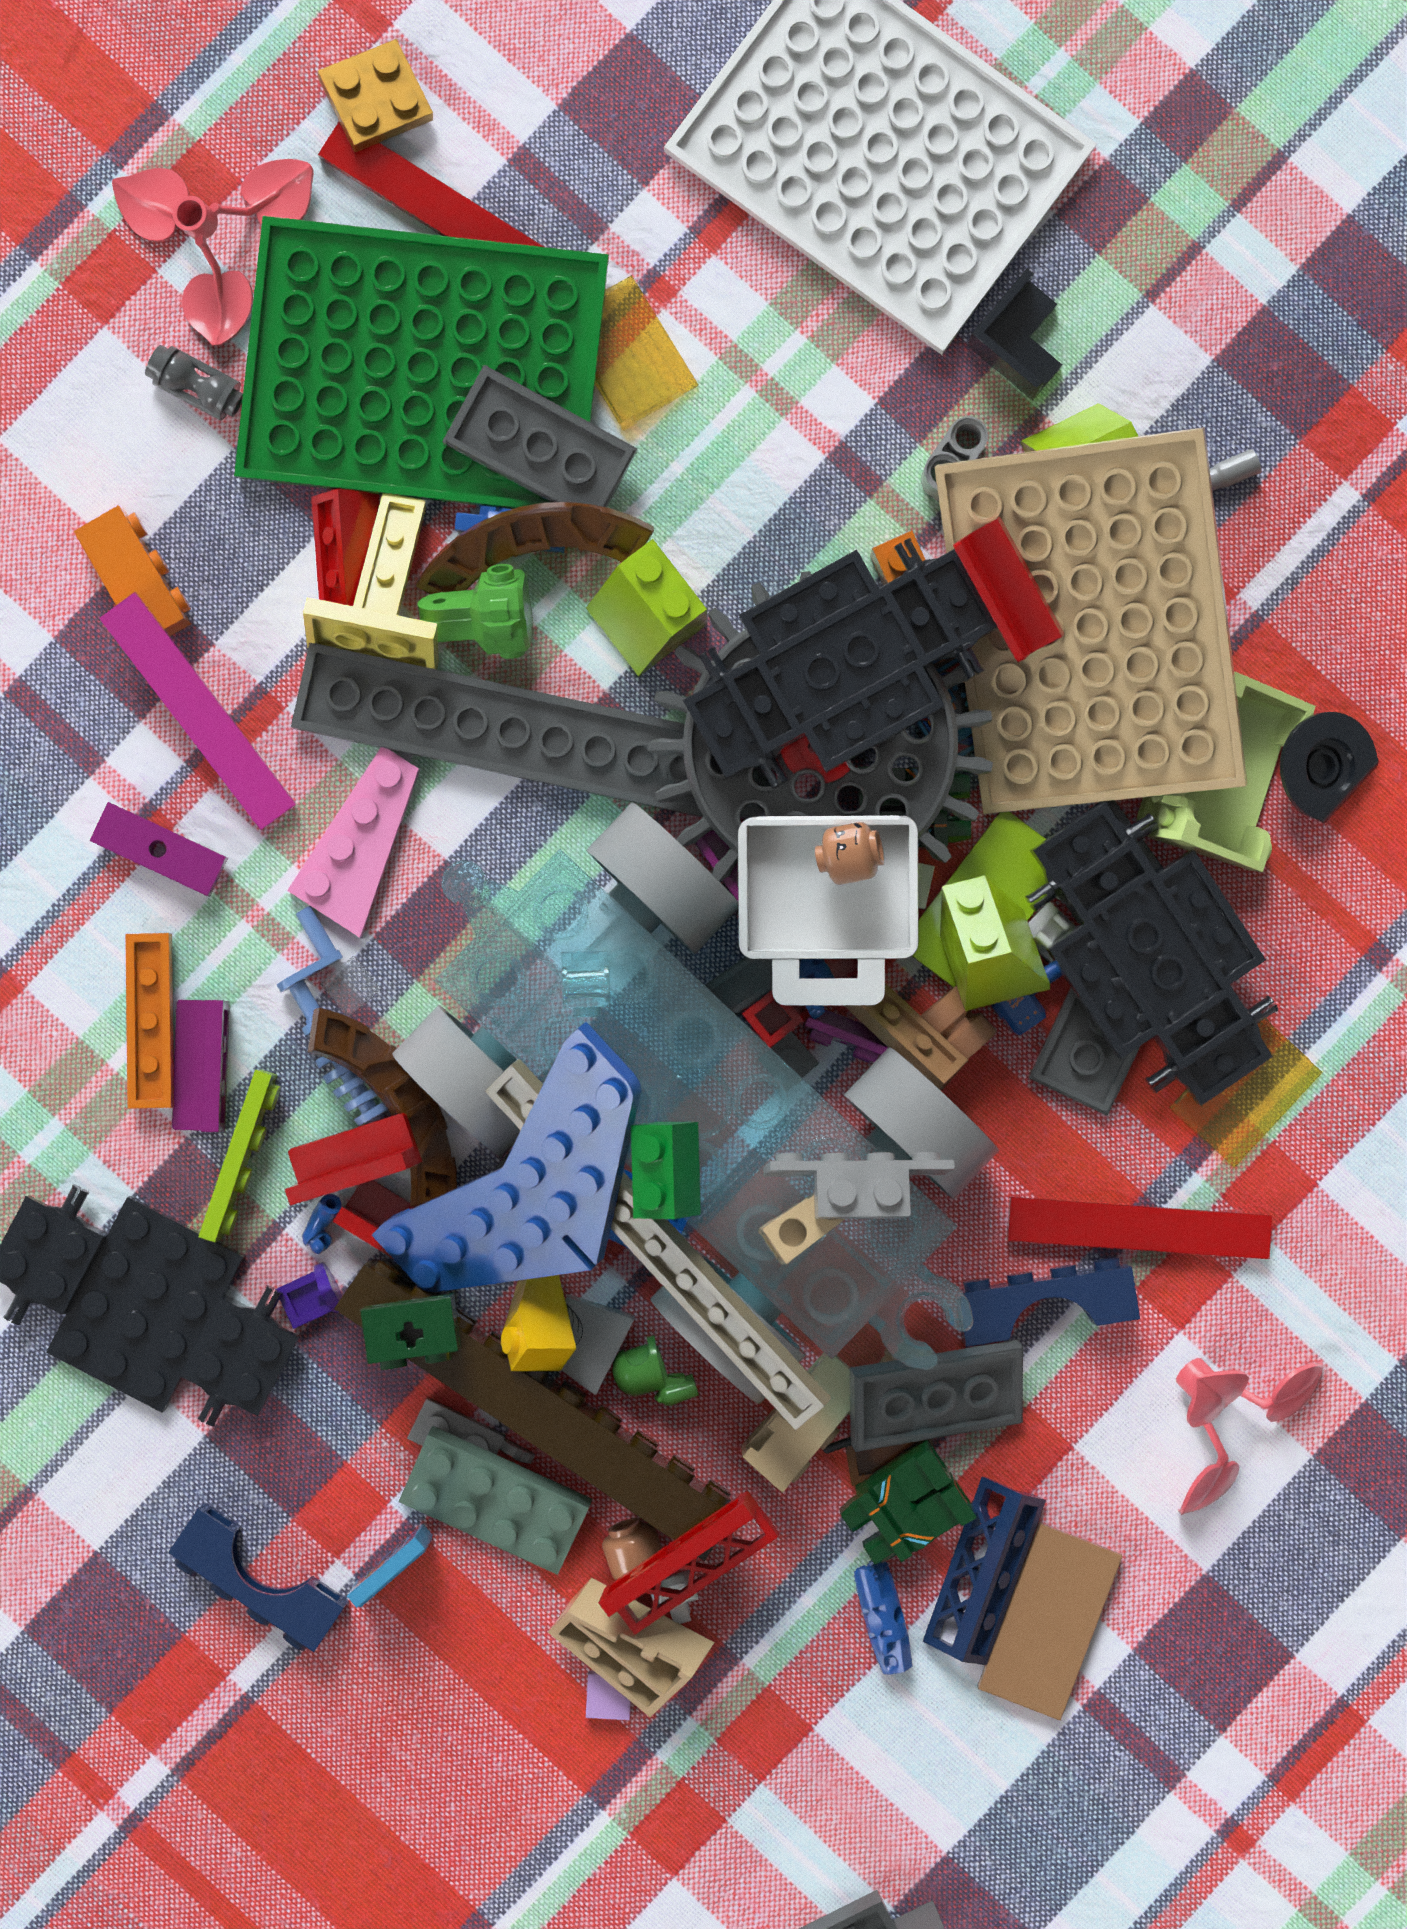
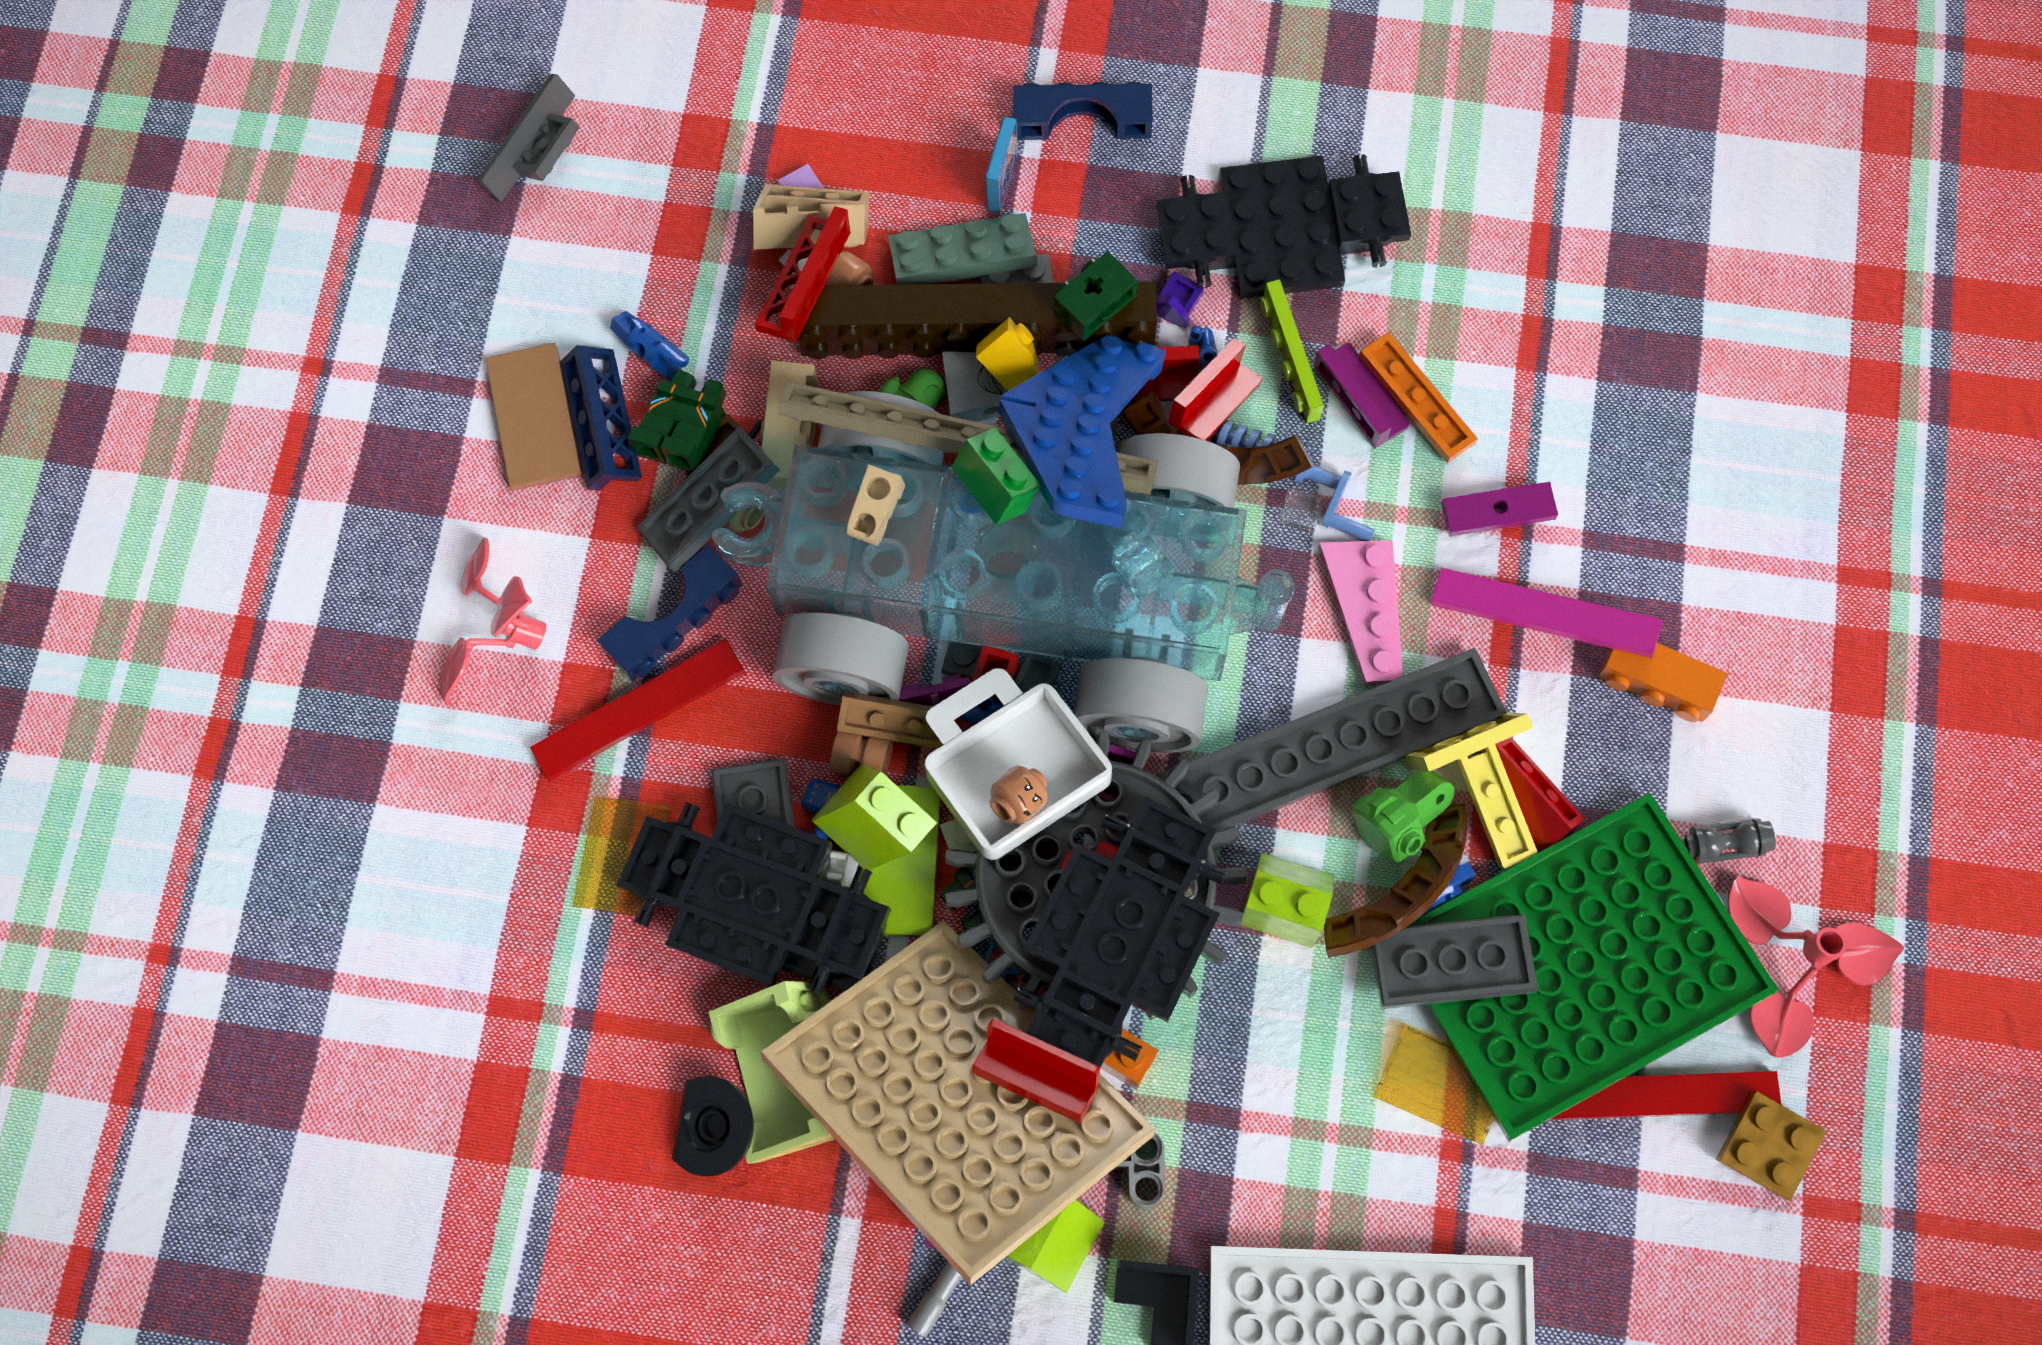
camera: 150 degrees right, 15 degrees down
(860, 1188) = (851, 551): light grey bracket -> none

